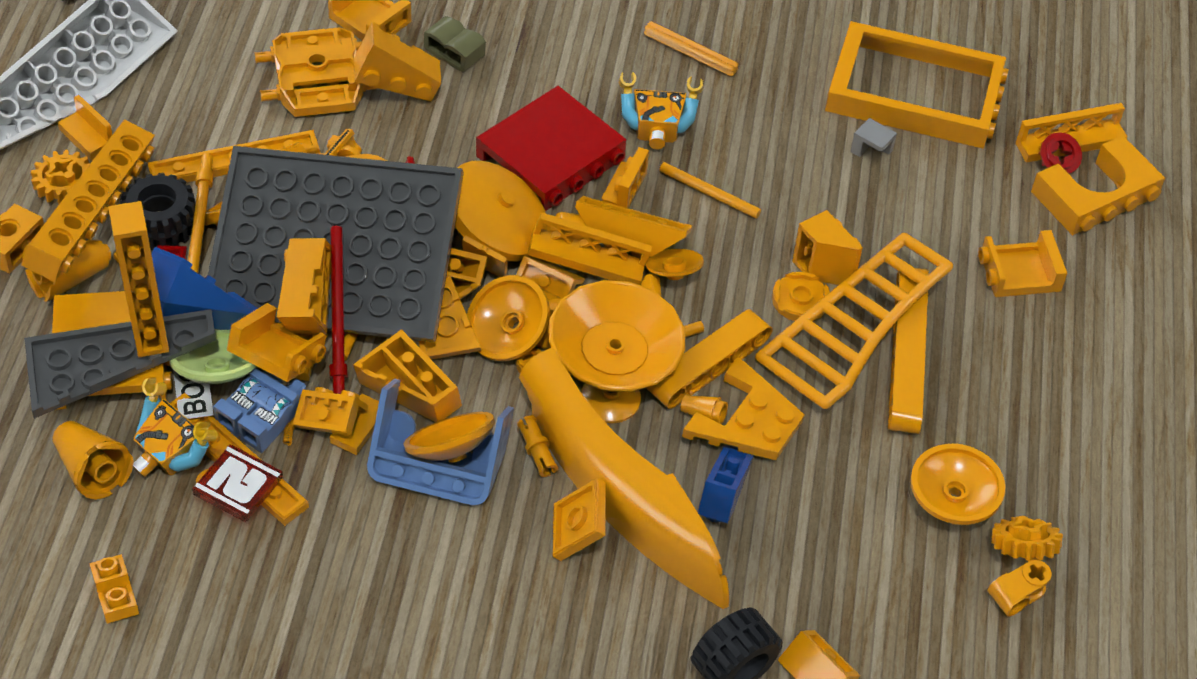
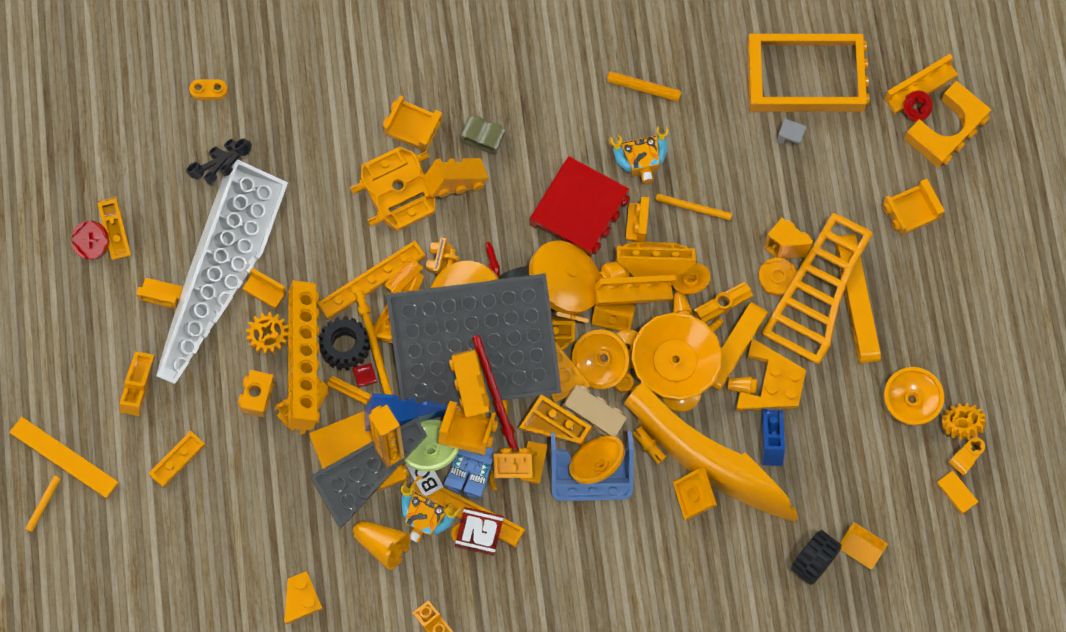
camera: 15 degrees left, 20 degrees up
(475, 378) = (594, 411): none -> tan brick
(713, 302) = (733, 297): none -> light orange piece
(991, 636) = (957, 492): none -> light orange tile

